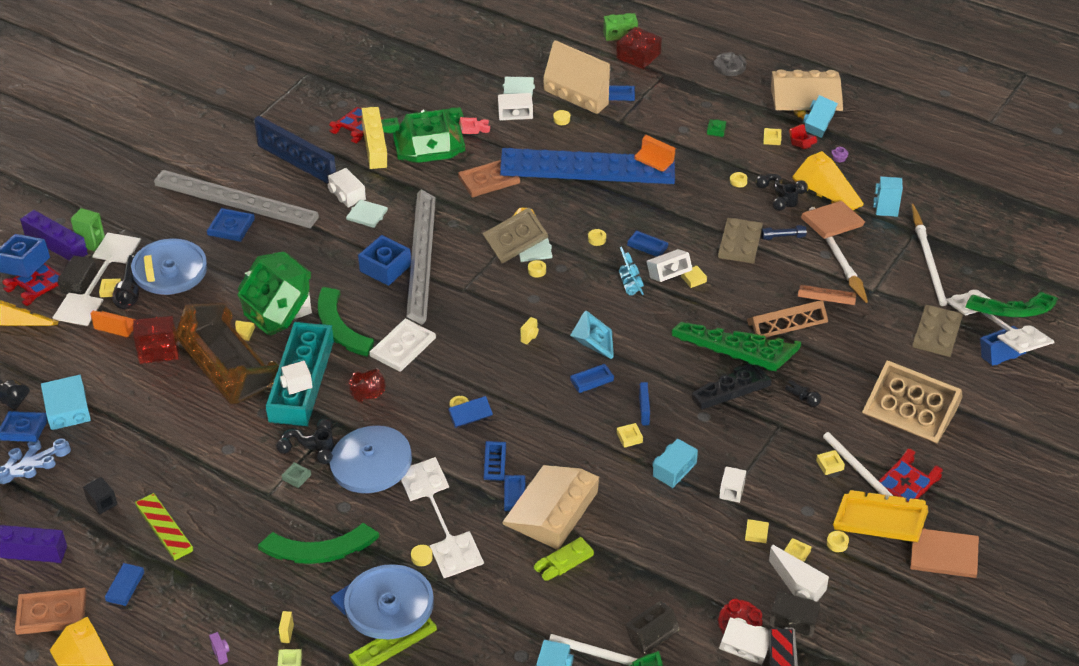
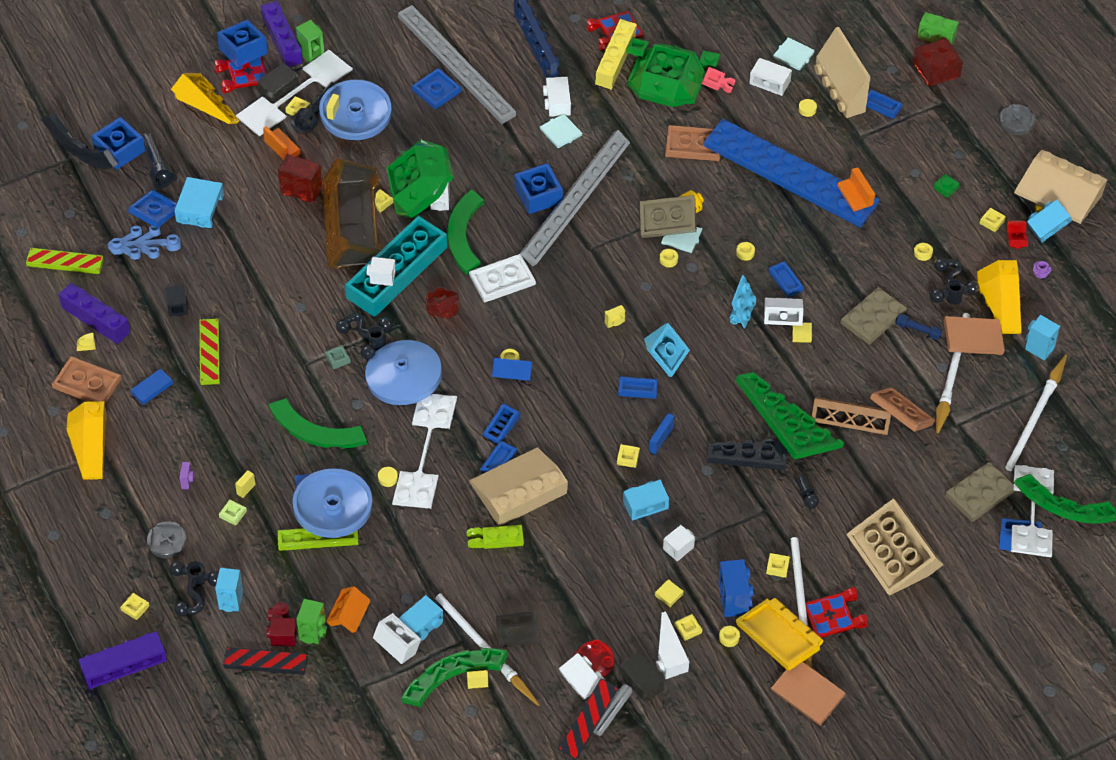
camera: 30 degrees right, 10 degrees up
(27, 574) = (86, 342): none -> light yellow tile
(815, 496) = (735, 587): none -> blue brick

